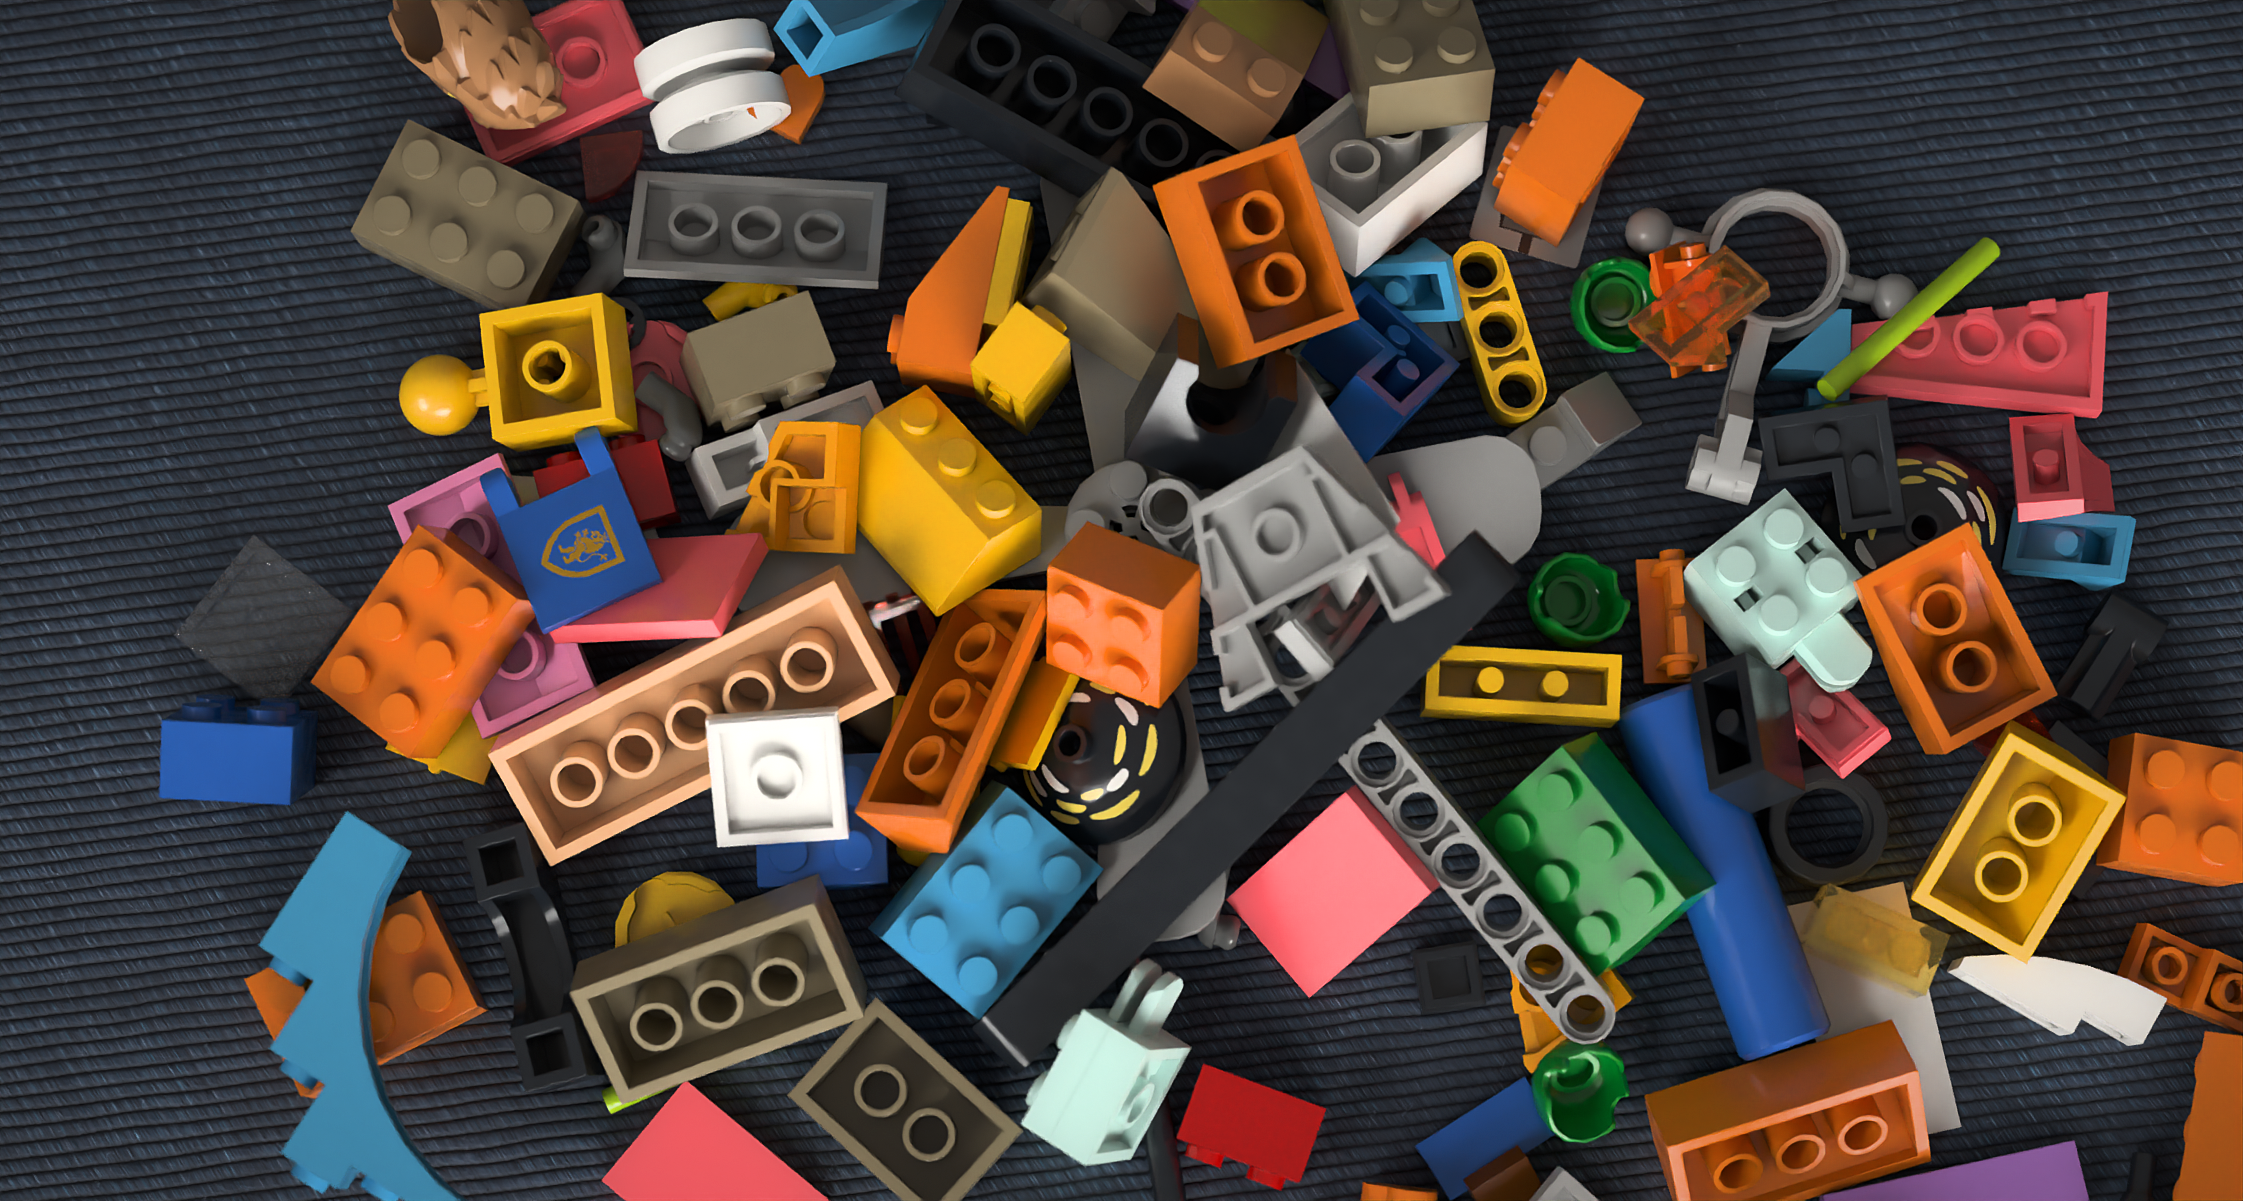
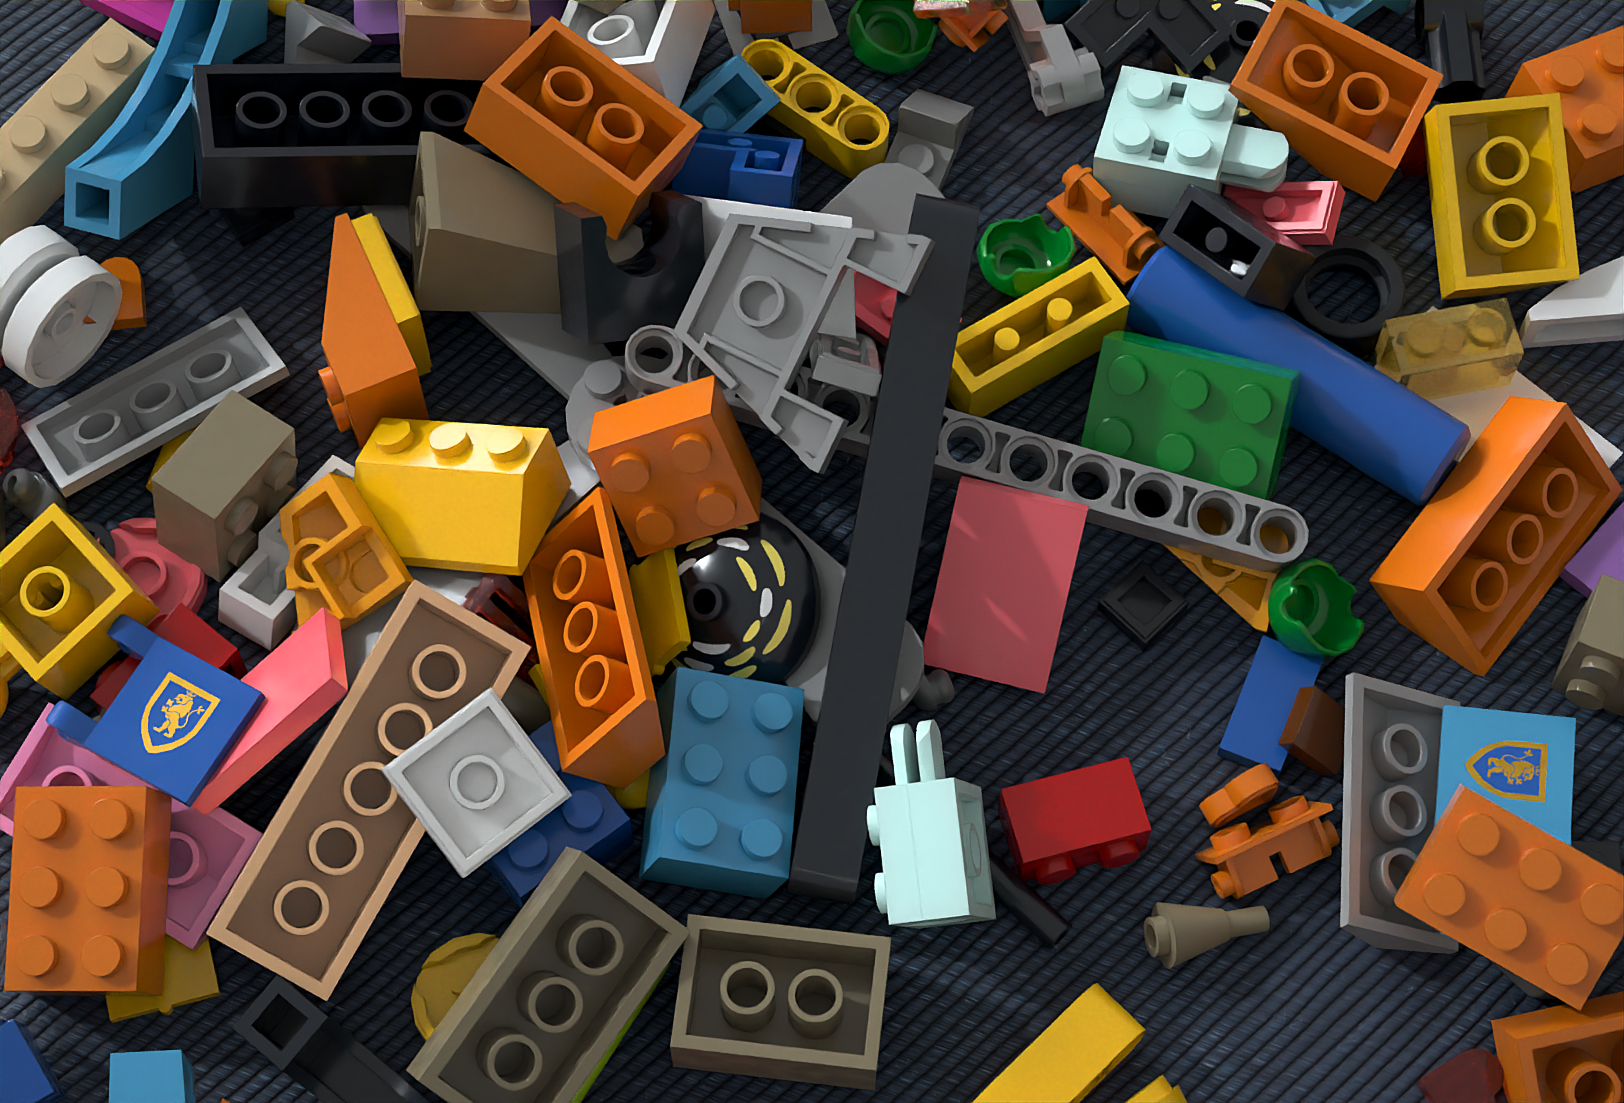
camera: 35 degrees left, 15 degrees down
(679, 415) = (185, 574): dark grey arm -> none
(1023, 366) = (454, 345): yellow brick -> none

